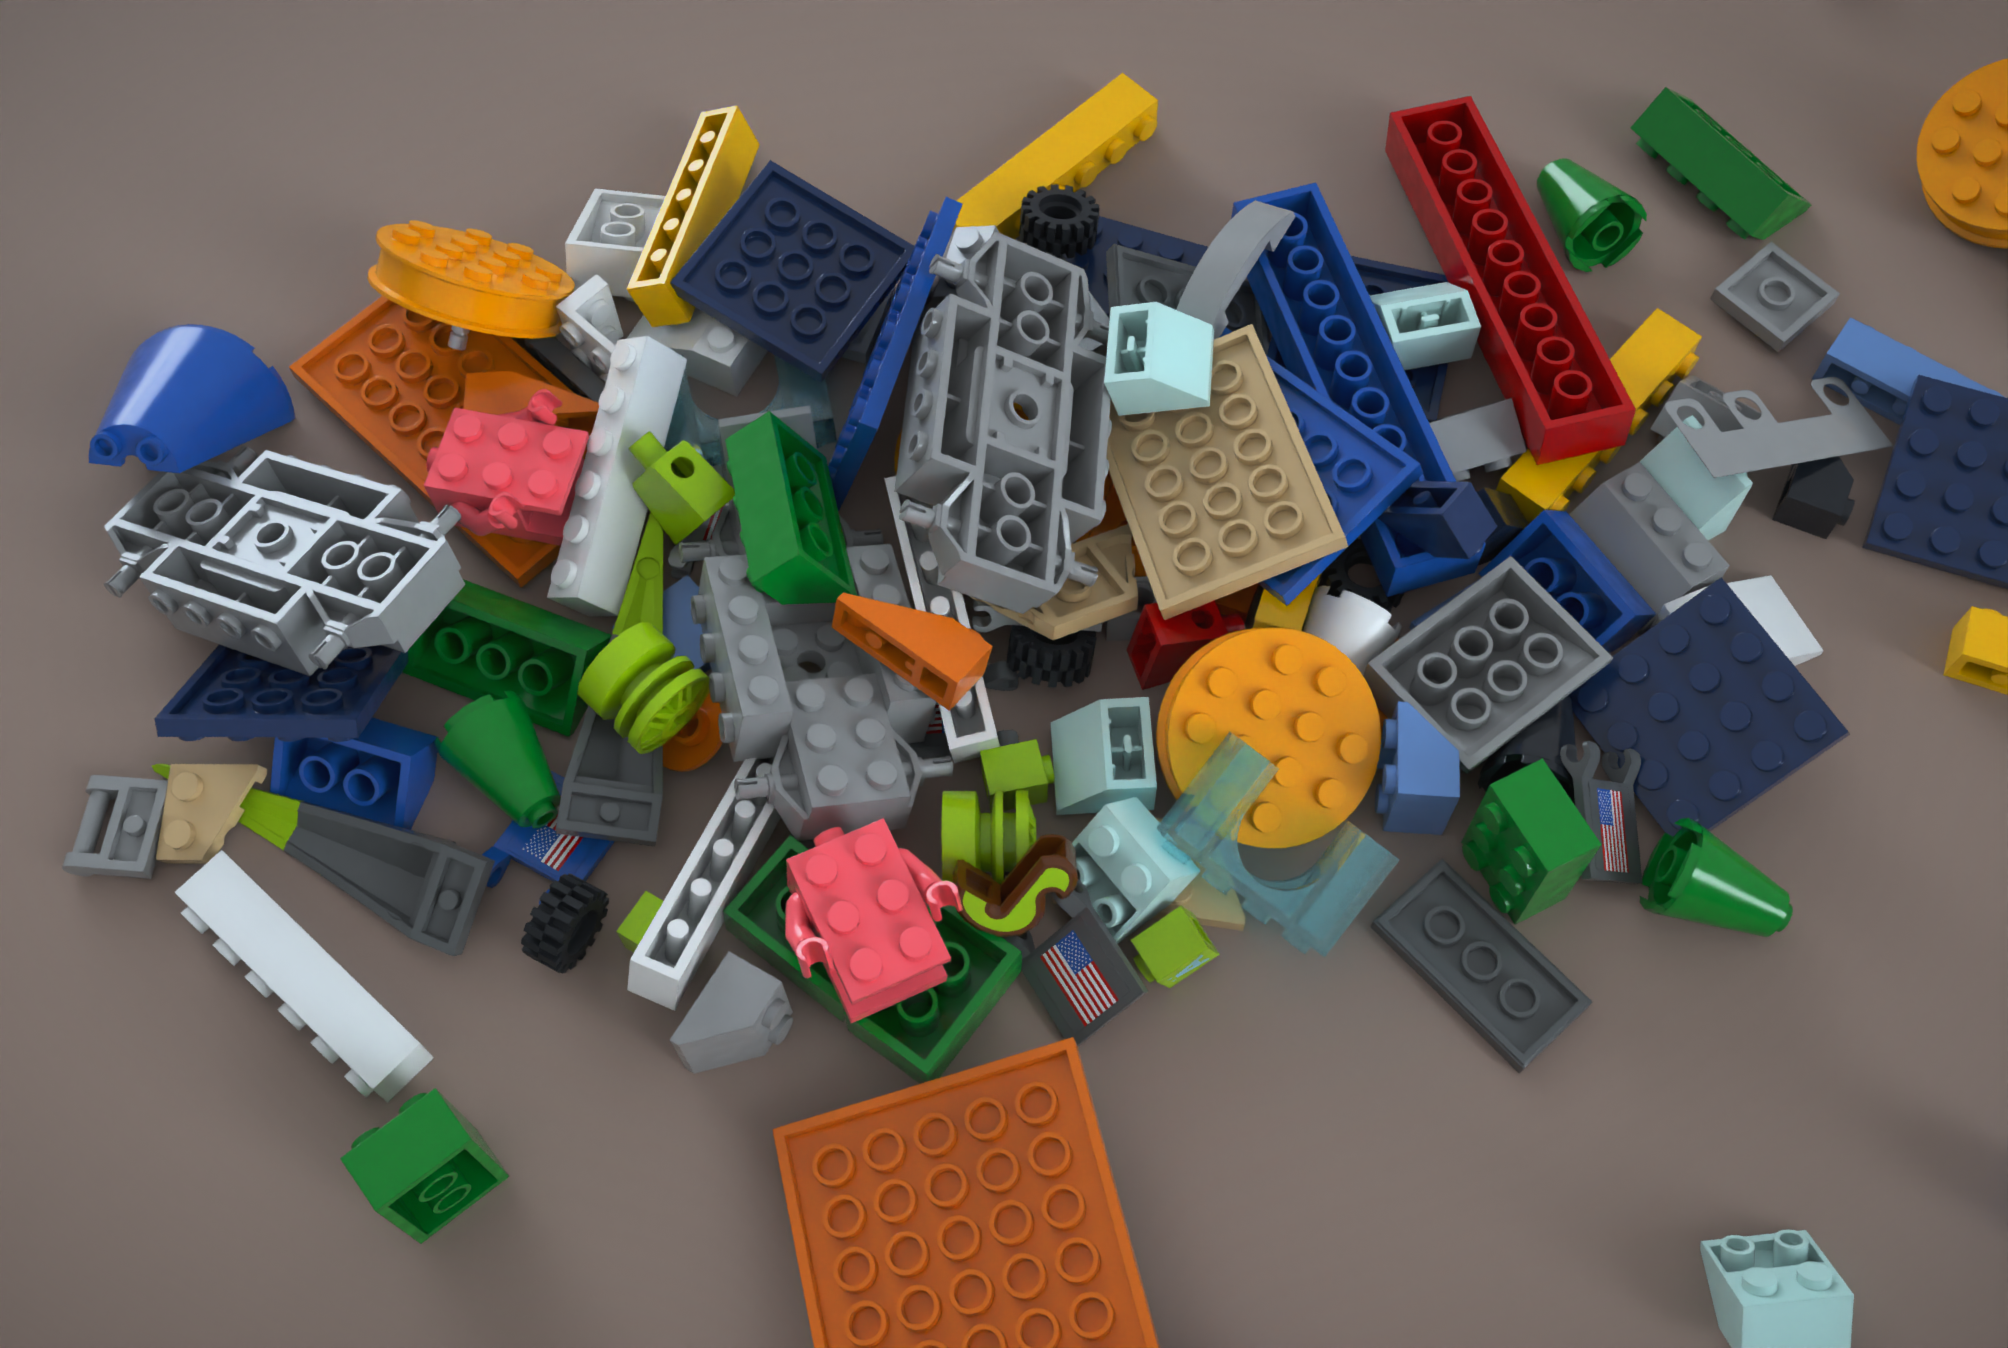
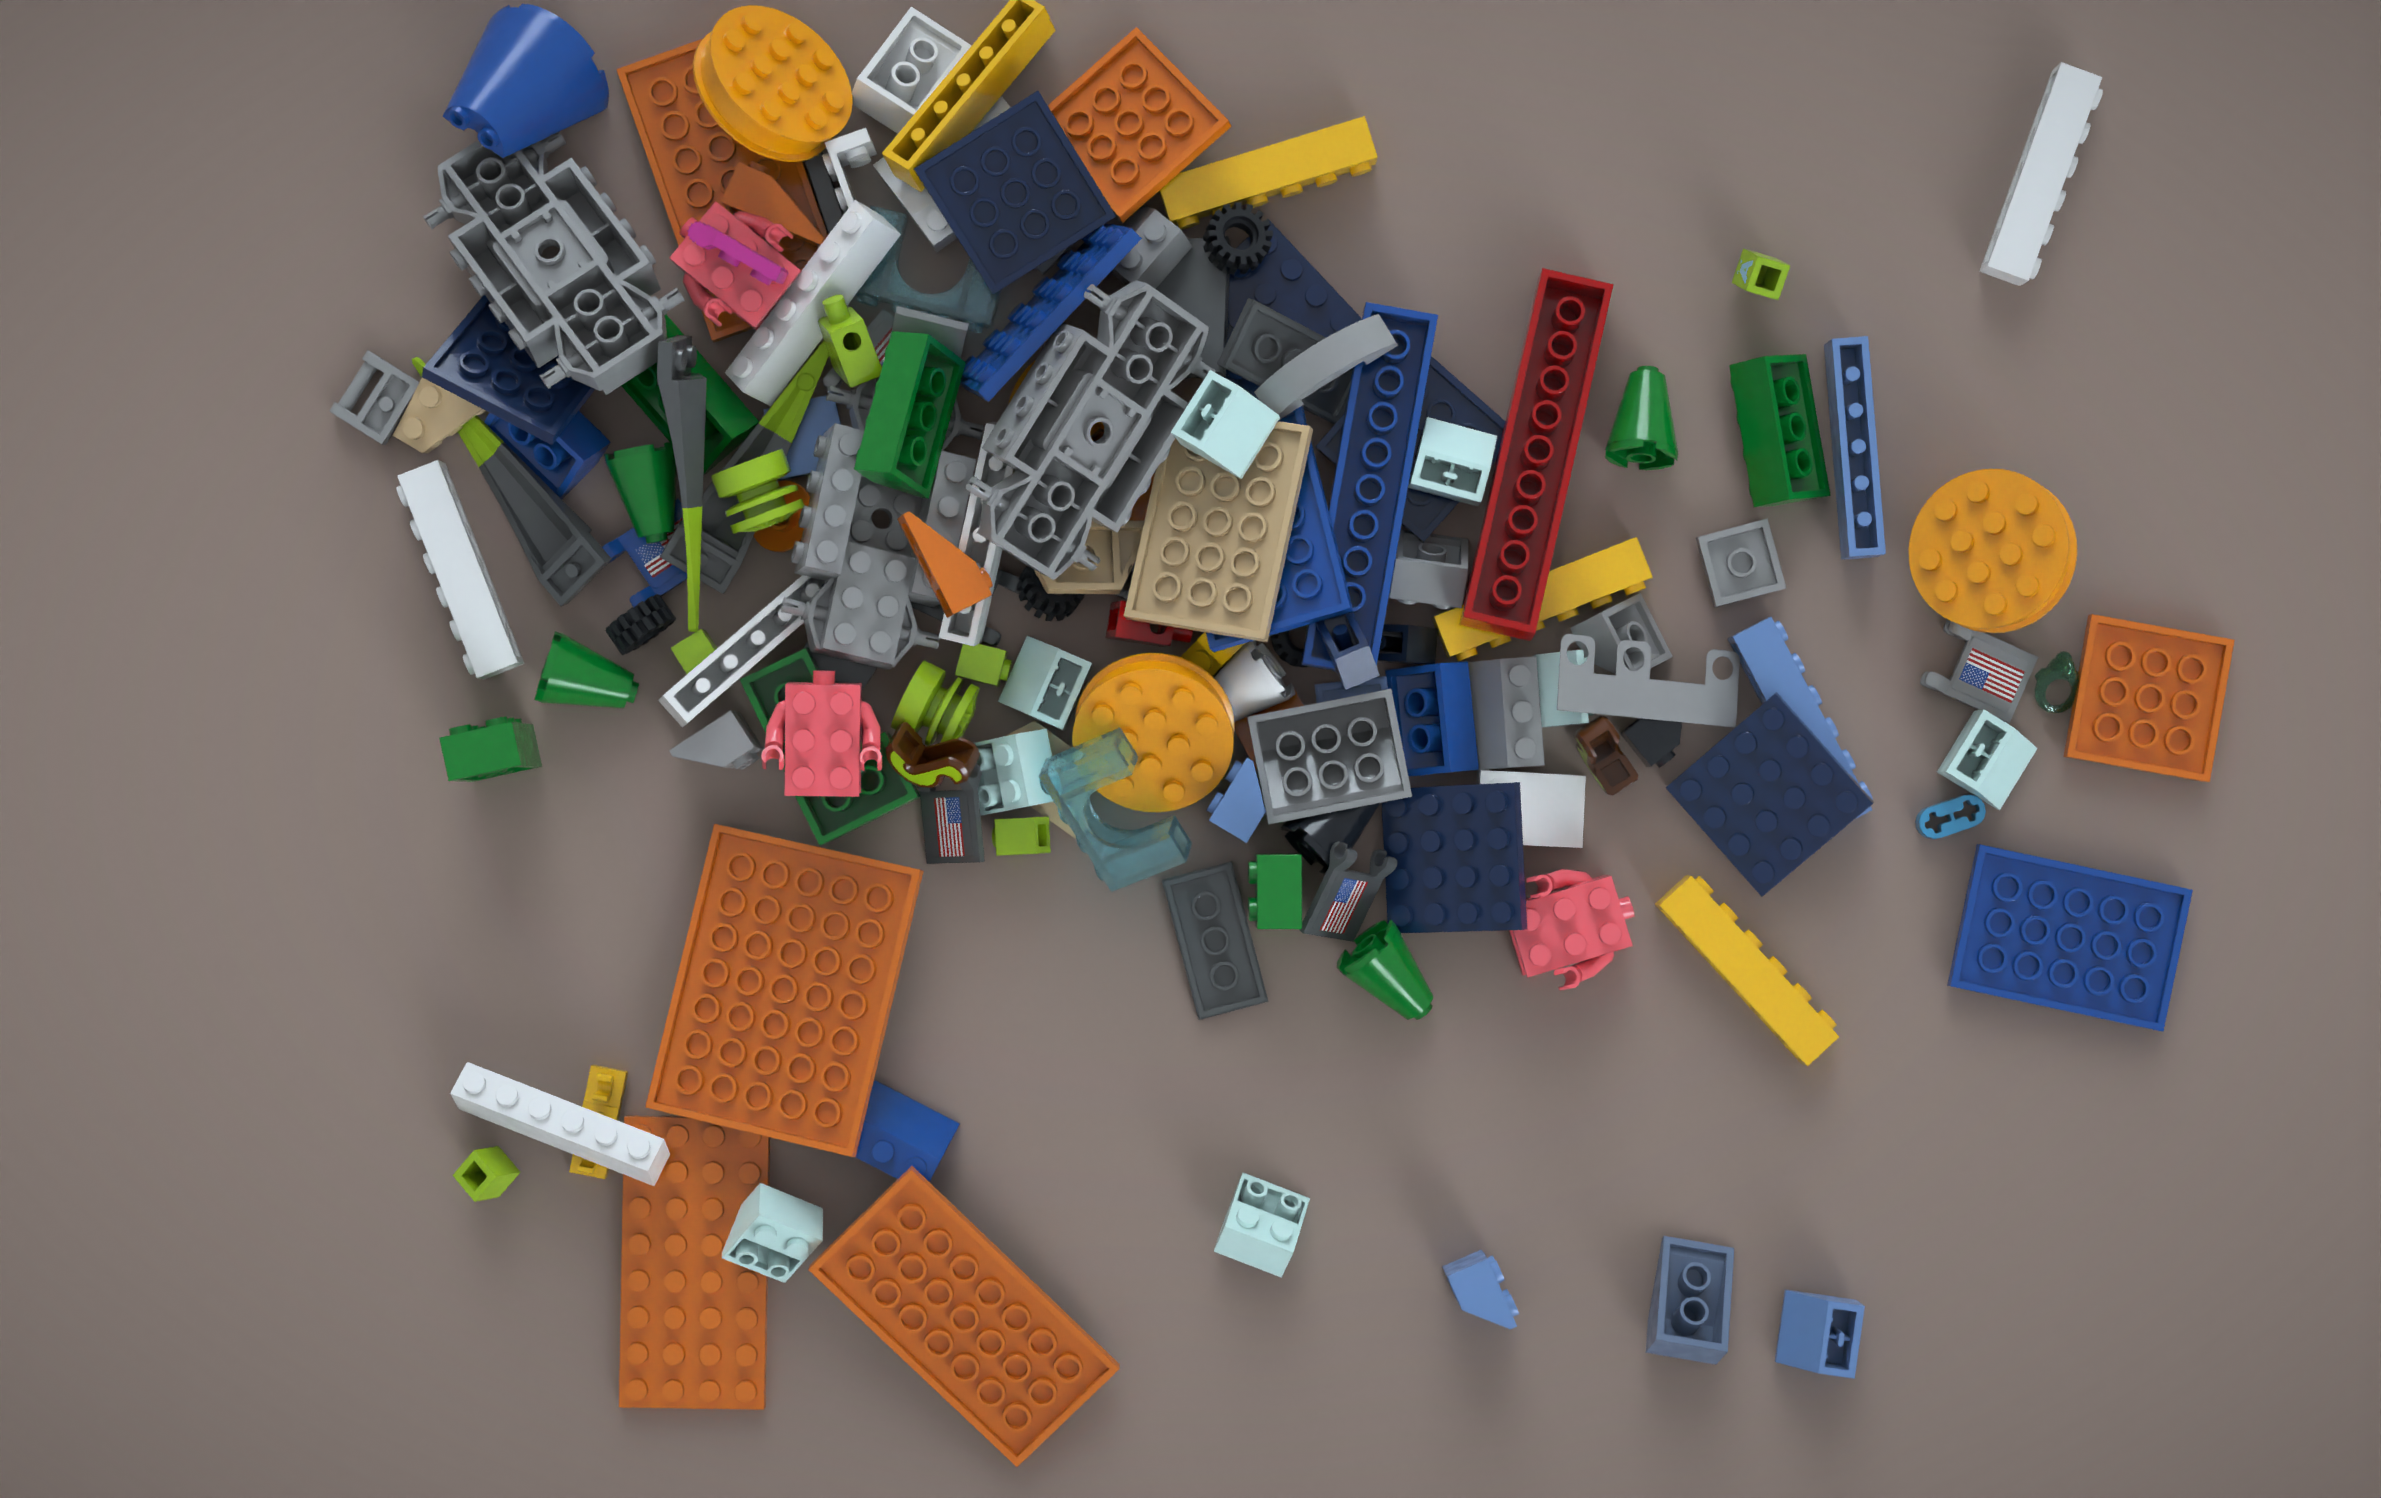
camera: 25 degrees right, 25 degrees up
(502, 429) = (736, 252): none -> dark pink hinge
(516, 625) = (685, 410): none -> dark grey plate
(517, 1024) = (583, 677): none -> green cone
(897, 163) = (1136, 122): none -> orange plate
(1602, 40) = (1760, 274): none -> lime brick
(1768, 532) = (1601, 753): none -> reddish brown animal
(1810, 143) = (1854, 448): none -> medium blue brick
(1894, 716) = (1570, 923): none -> coral torso

